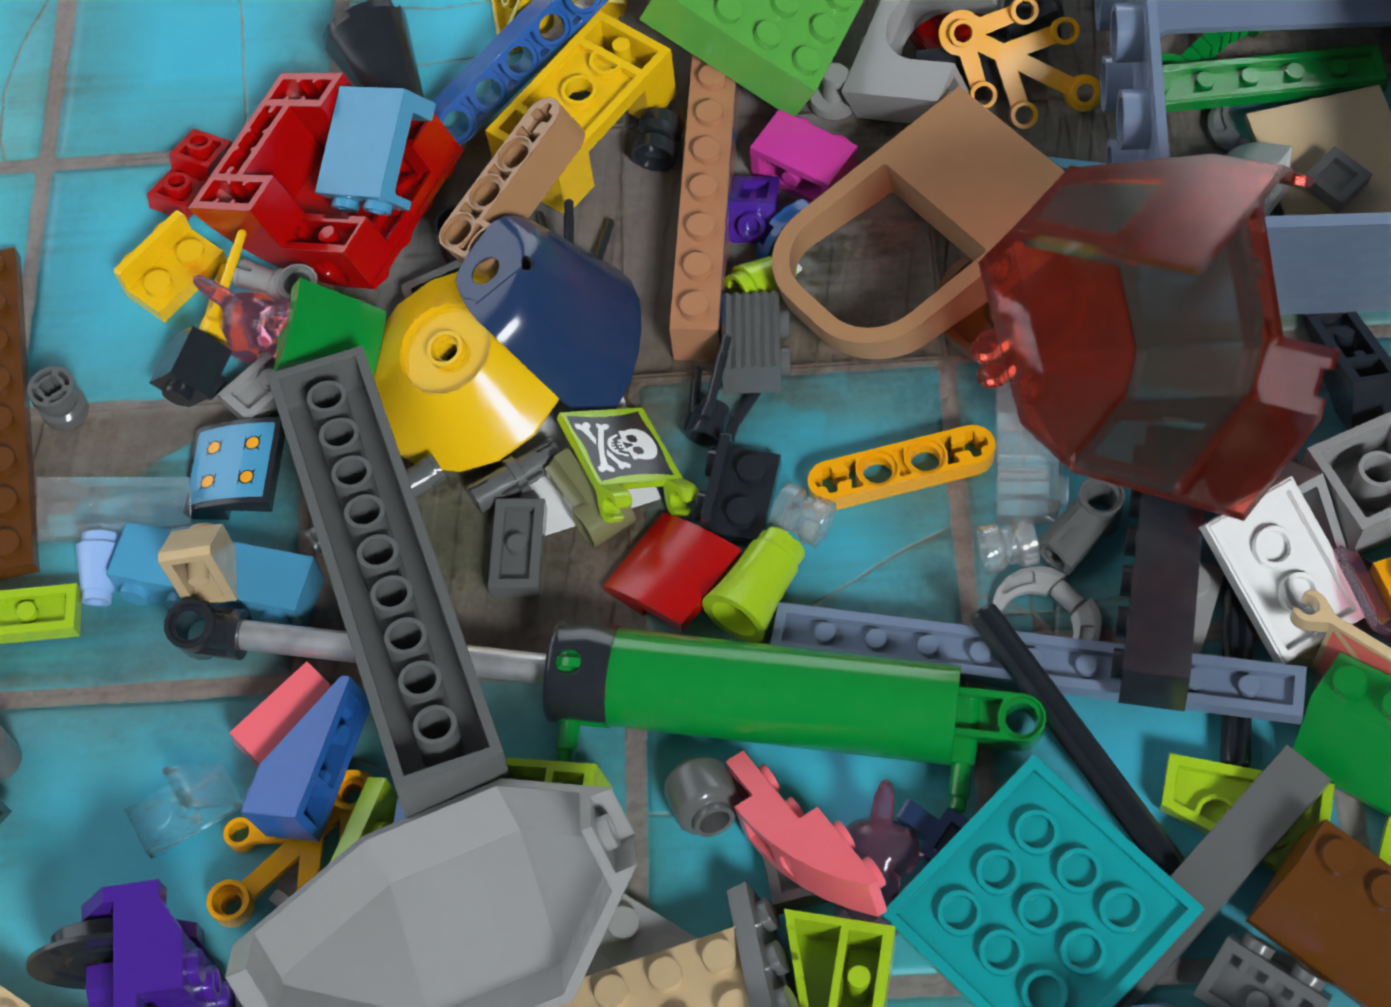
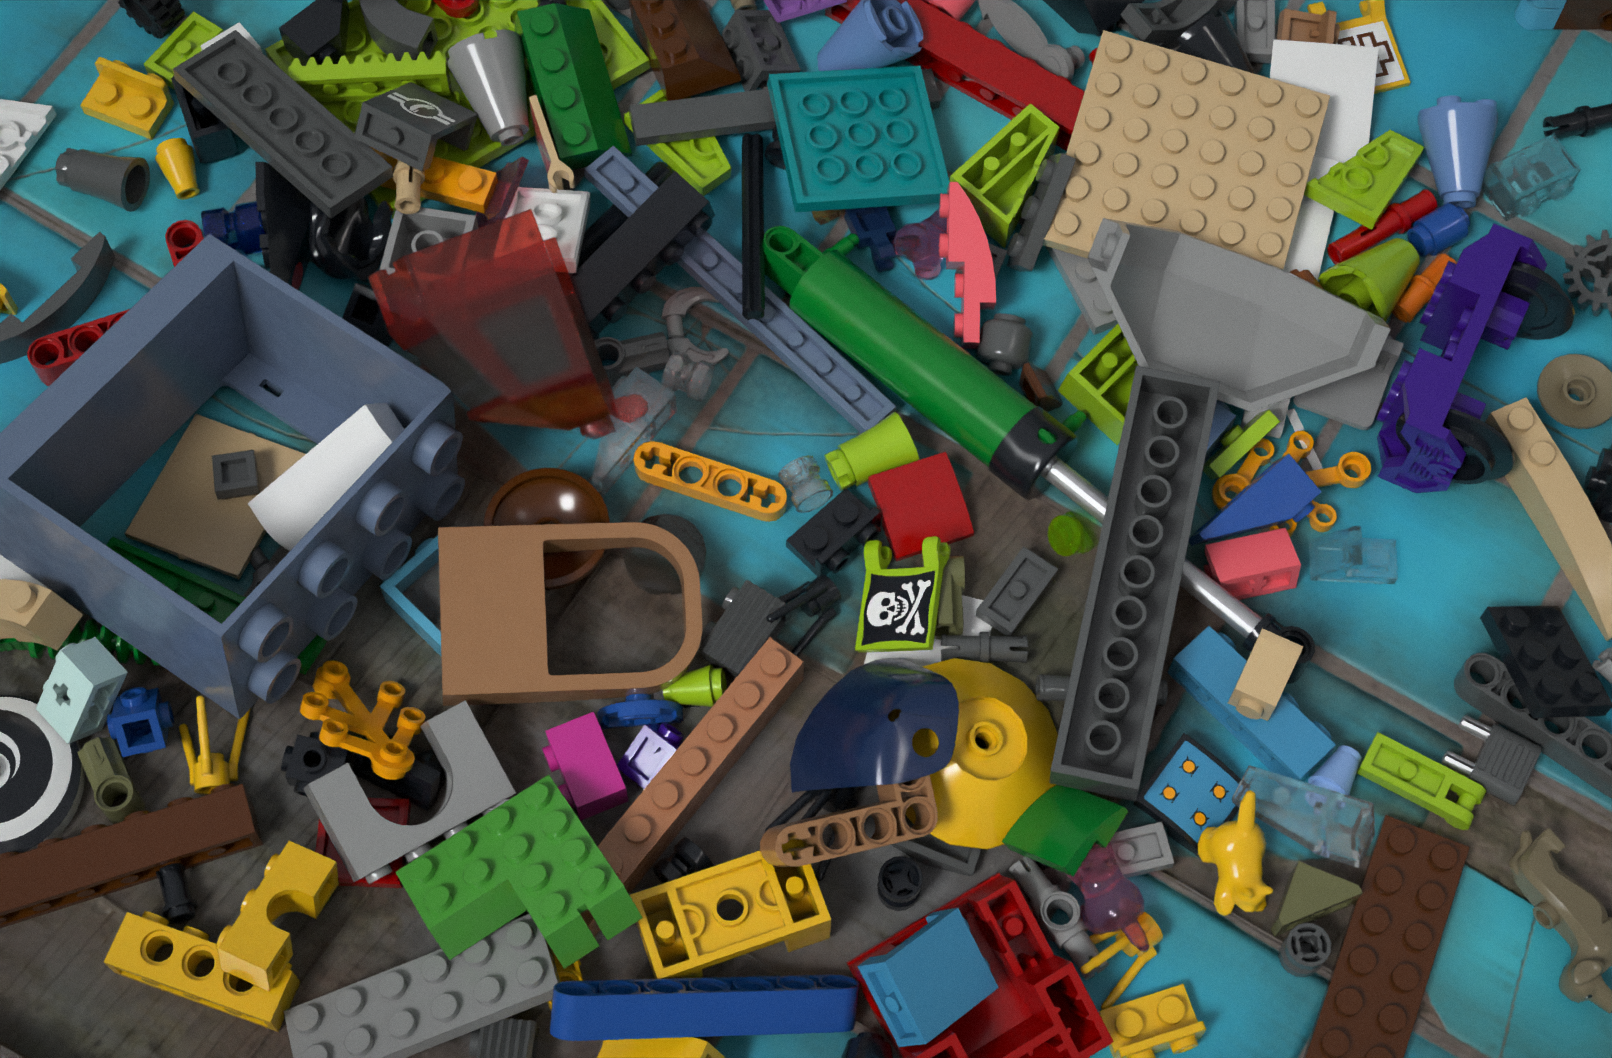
camera: 155 degrees left, 5 degrees up
(71, 443) = (1311, 896): none -> olive slope
(153, 426) = (1238, 854): none -> yellow animal
(191, 368) = (1185, 897): black brick -> none
(501, 632) = (1068, 535): none -> clear neon green plate
(633, 776) = (1039, 388): none -> slope
(889, 387) = (652, 570): none -> clear smoke tile

